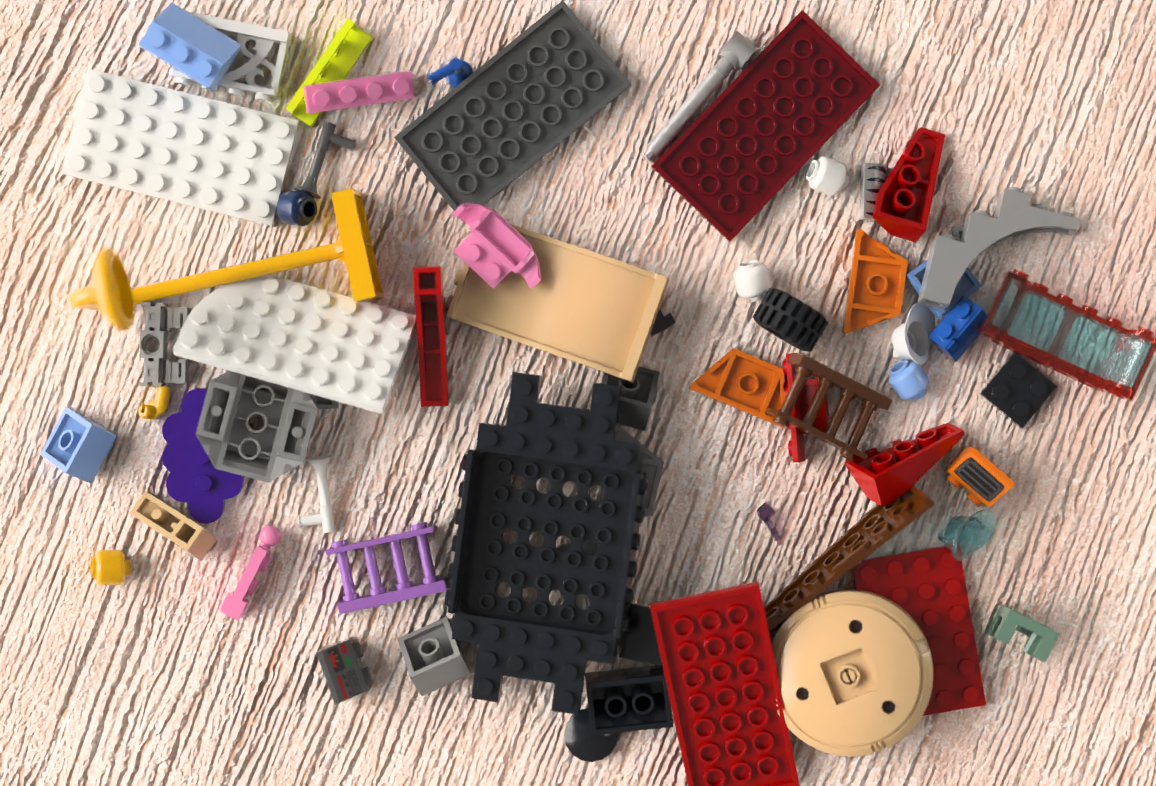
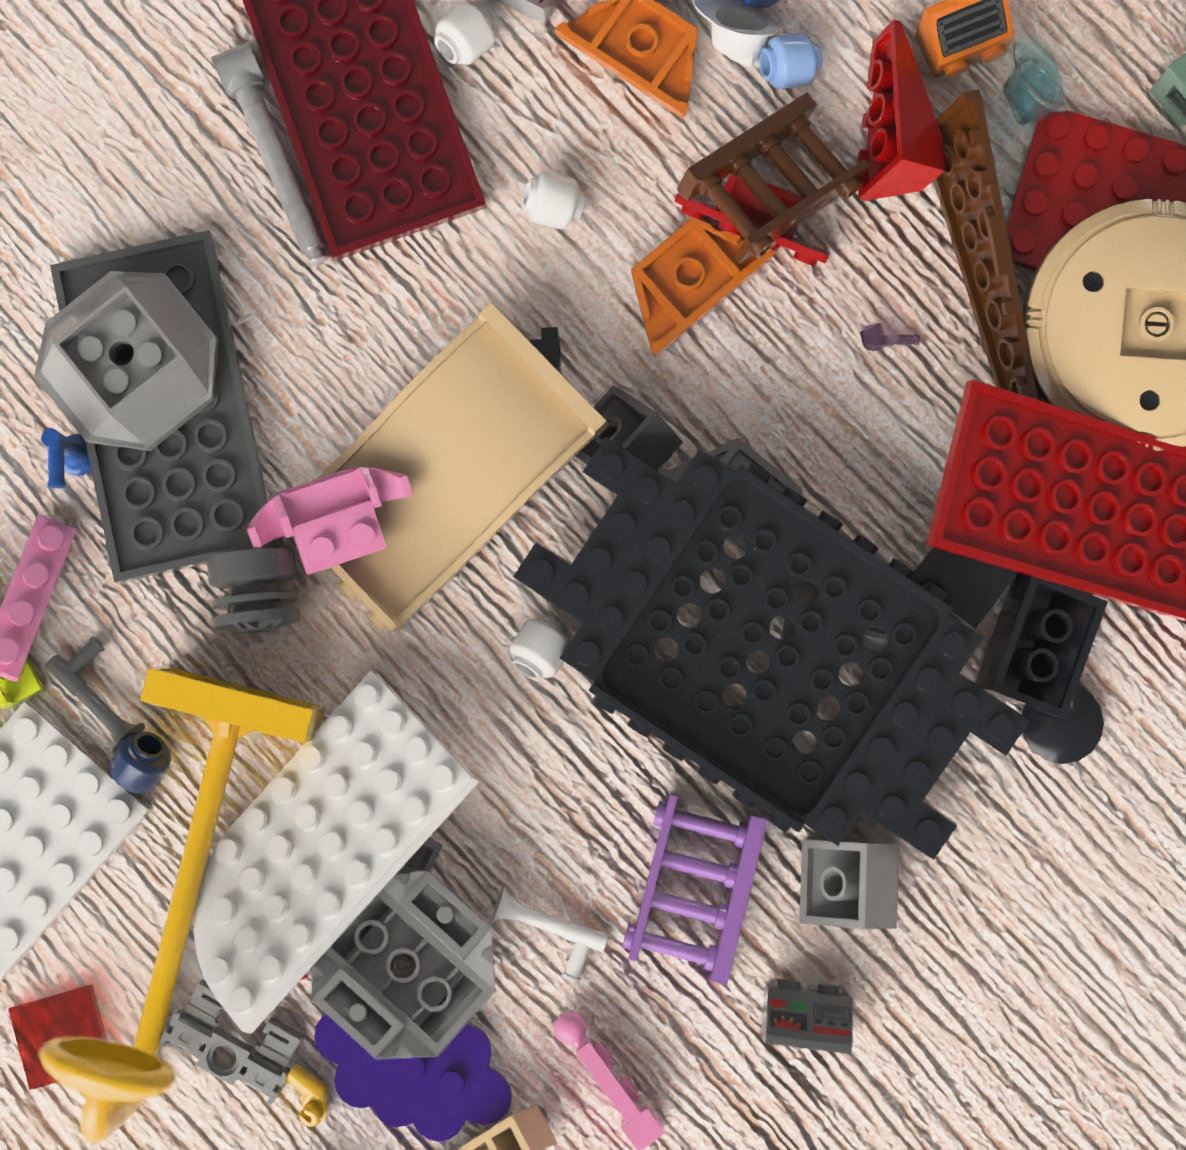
camera: 55 degrees left, 5 degrees down
(119, 233) = (55, 1016): none -> clear red plate
(429, 223) = (253, 589): none -> dark grey wheel
(431, 335) = (406, 663): red arch -> none
(480, 407) = (539, 648): none -> white head
(521, 106) = (151, 394): none -> light grey piece
(790, 319) = (631, 170): black tyre -> none

